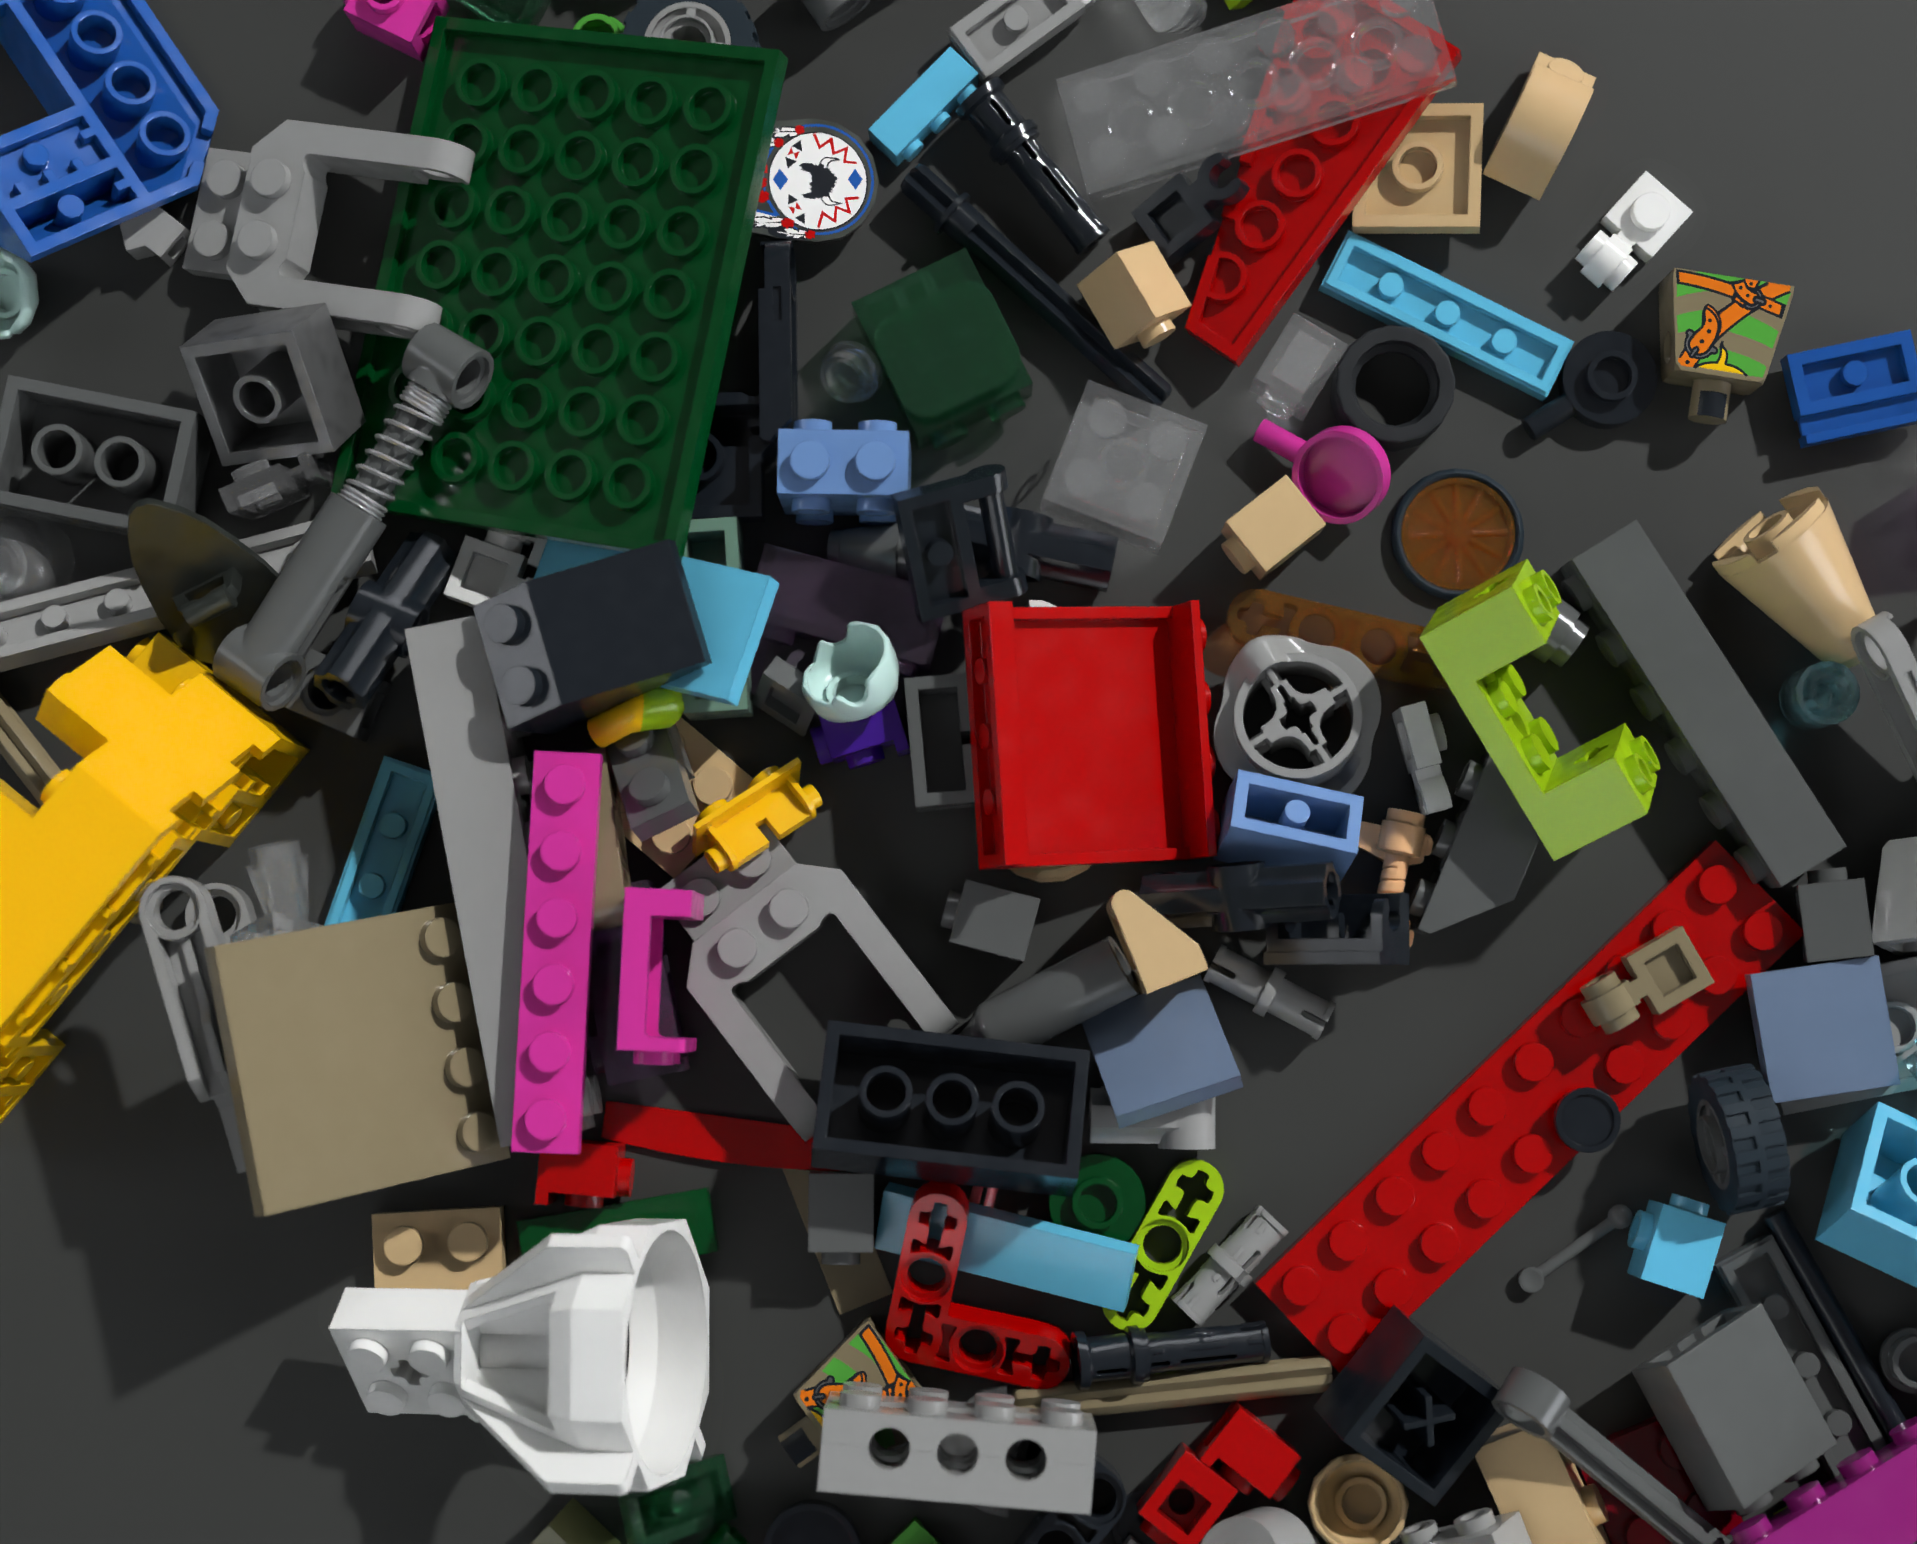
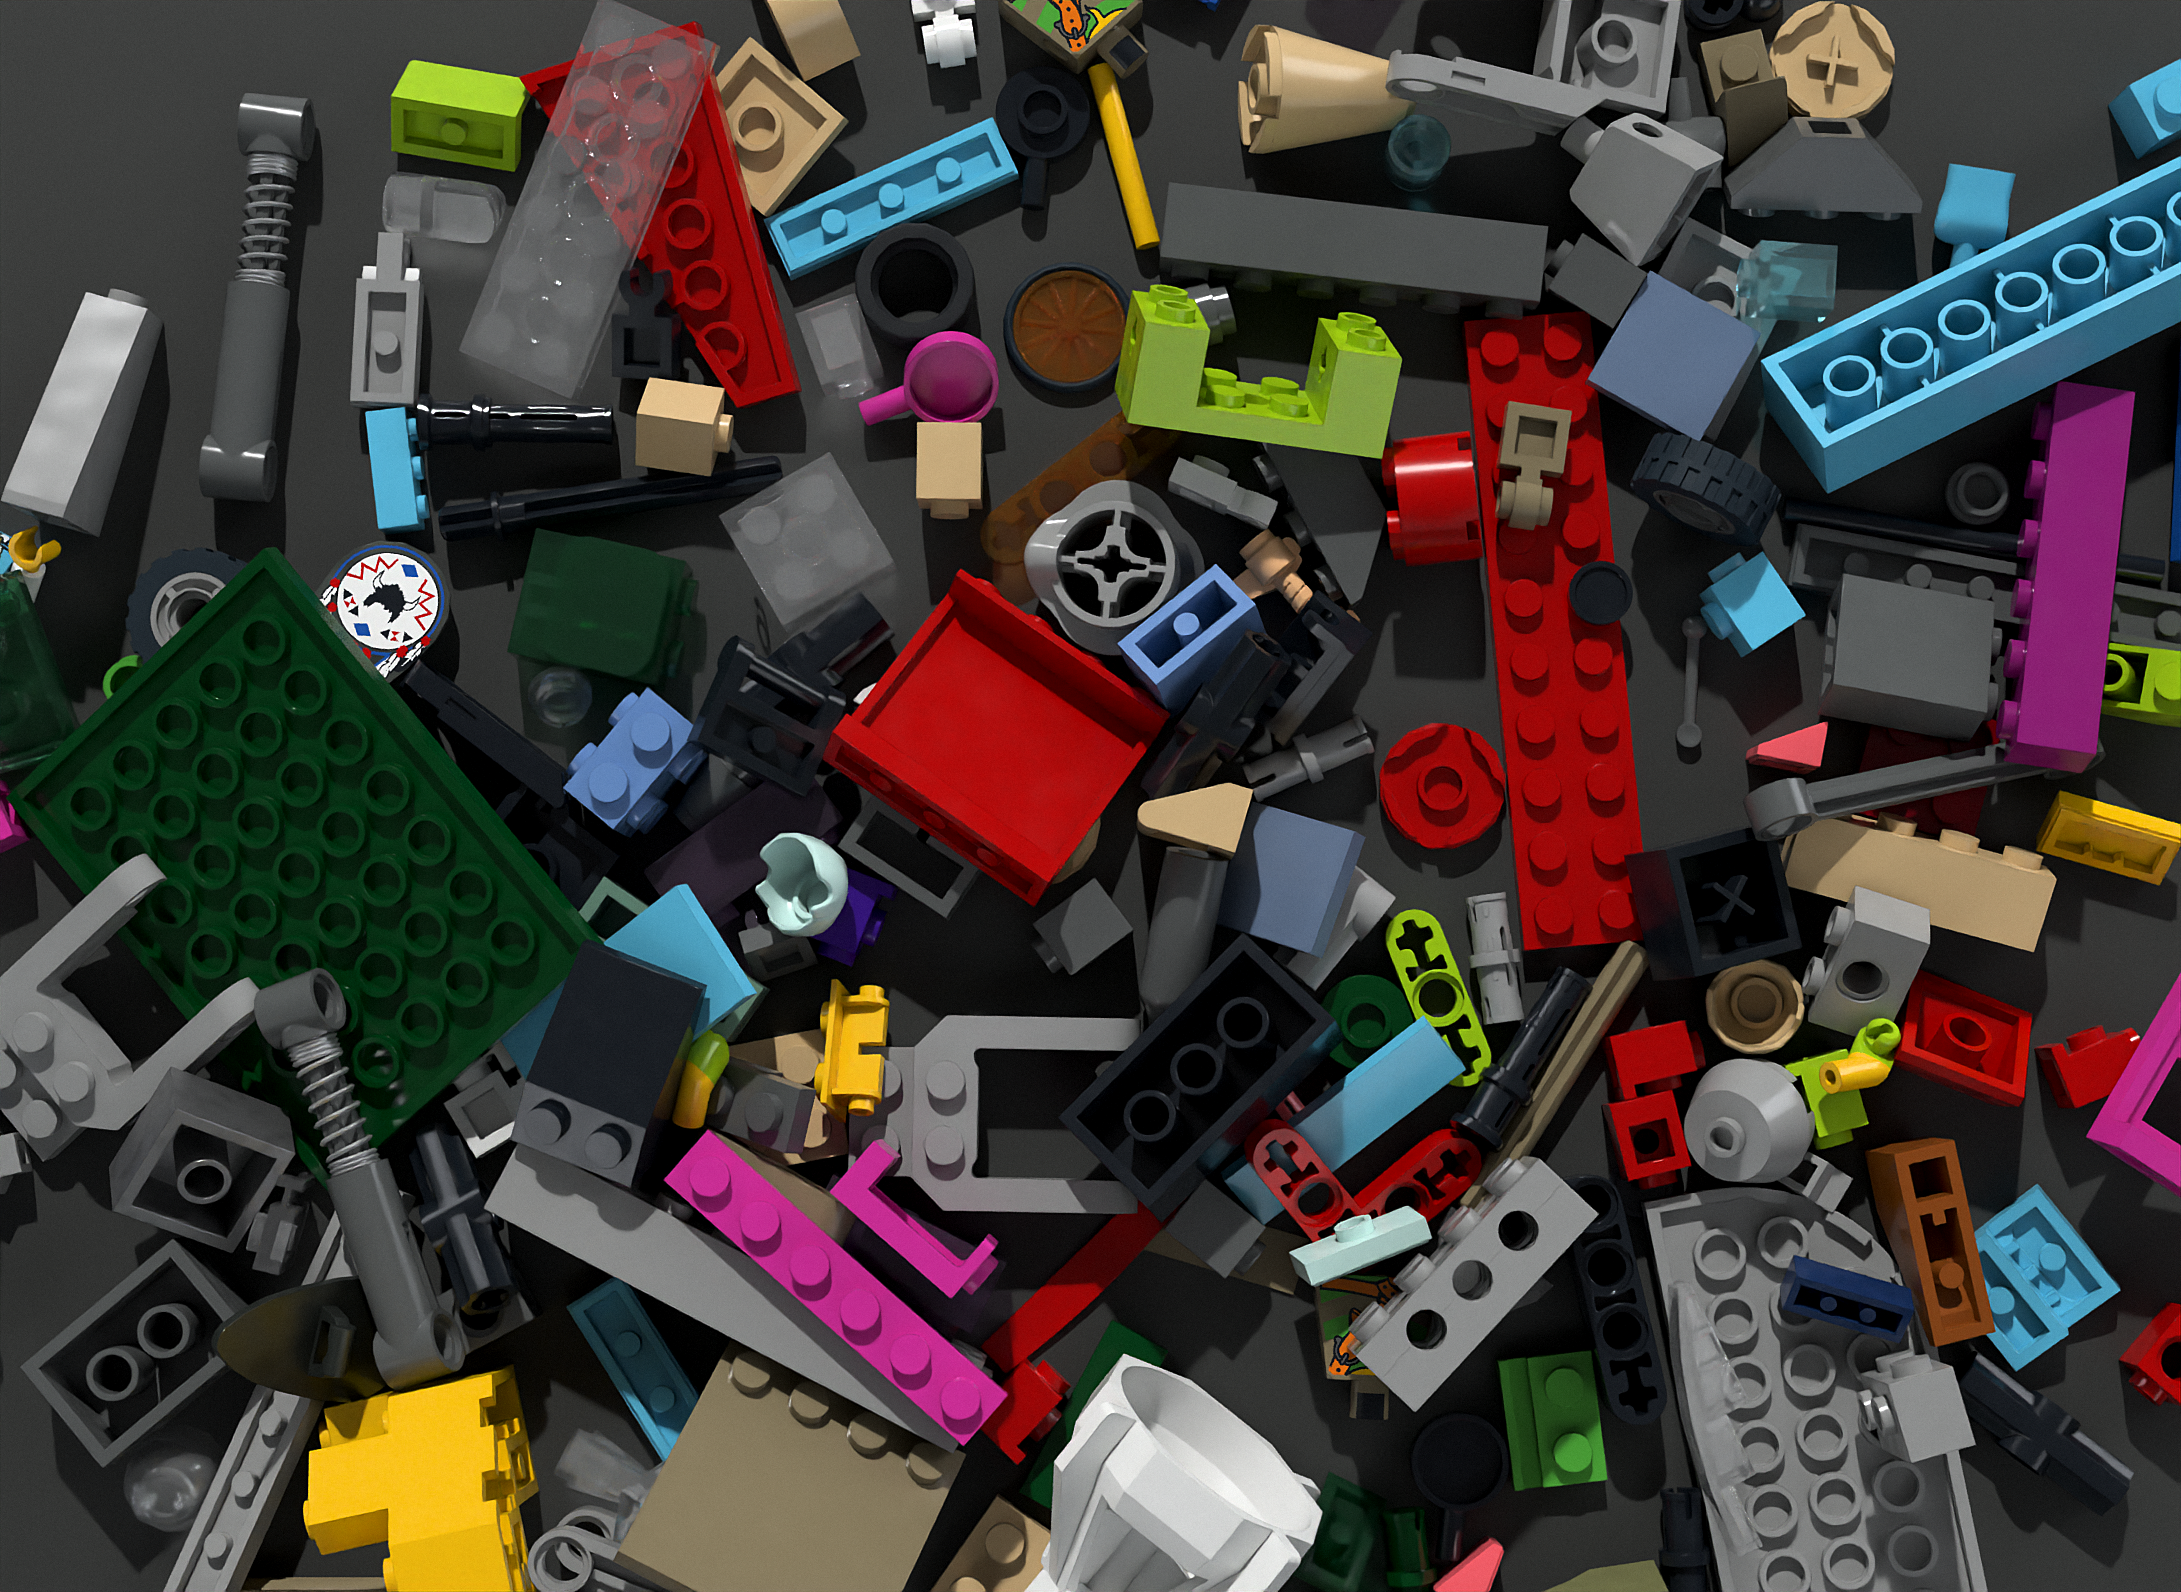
camera: 55 degrees left, 0 degrees up
(918, 1338) = (1359, 1244): none -> light aqua plate
(1332, 1115) = (1441, 786): none -> red tile
(1556, 929) = (1435, 499): none -> red brick
(1585, 1376) = (1795, 752): none -> coral slope
(1627, 469) = (1124, 156): none -> yellow bar

